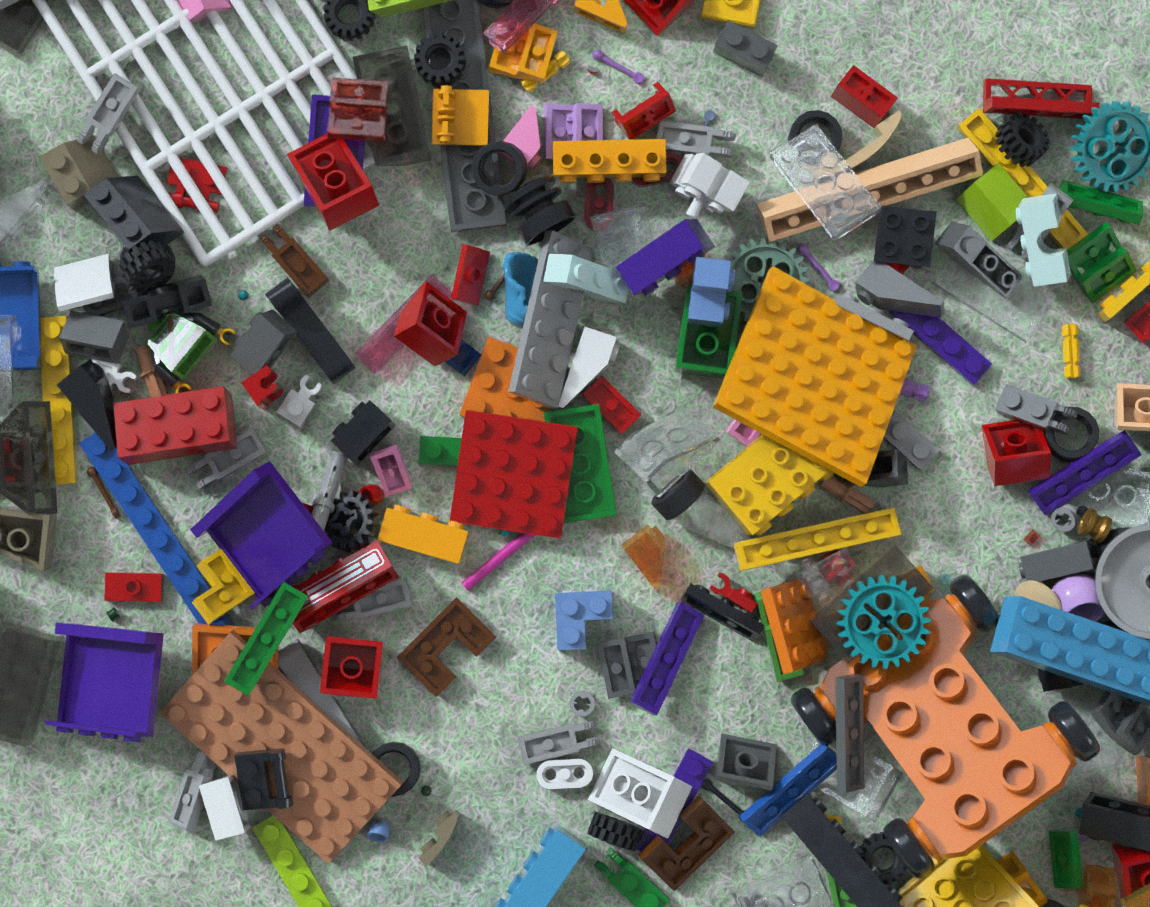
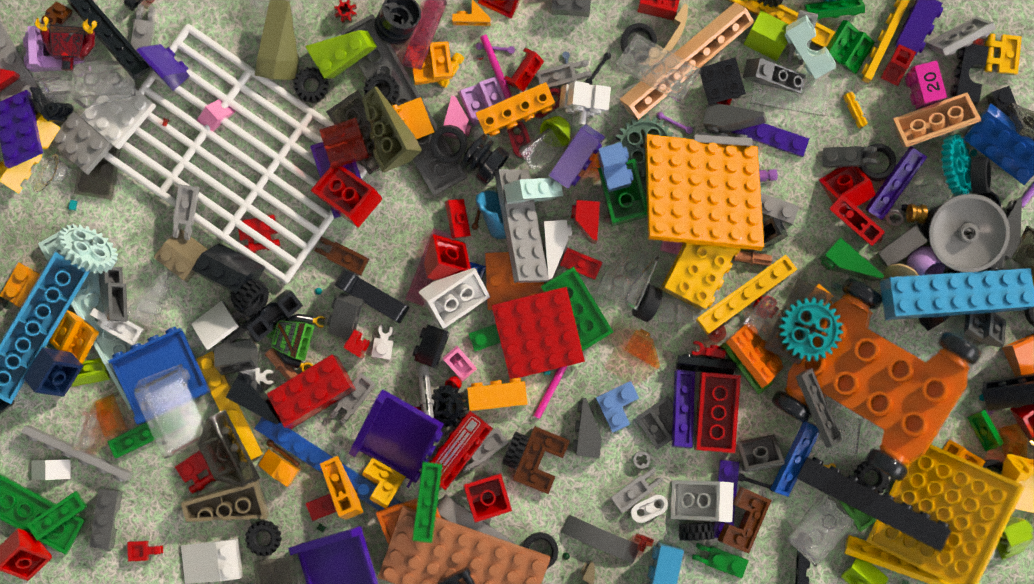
camera: 20 degrees left, 0 degrees up
(12, 591) = (251, 540): none -> black tyre
(89, 511) = (279, 468): none -> light orange slope
(160, 573) = (341, 489): none -> light orange slope
(416, 619) = (515, 450): none -> black tyre
(420, 377) = (454, 296): none -> white slope
(426, 127) = (392, 137): none -> olive wedge
(482, 788) = (600, 539): none -> dark grey slope
(524, 641) = (588, 435): none -> dark grey slope
(538, 814) = (643, 541): none -> clear red tile
(608, 90) = (495, 65): none -> dark pink bar
(644, 345) = (586, 218): none -> red slope
(659, 209) = (560, 128): none -> lime helmet
(711, 682) = (717, 412): none -> red brick
(756, 581) = (713, 336): none -> clear red tile
(764, 139) = (607, 56): none -> black hinge
(972, 549) = (846, 260): none -> green slope
(1009, 500) = (856, 220): none -> red slope

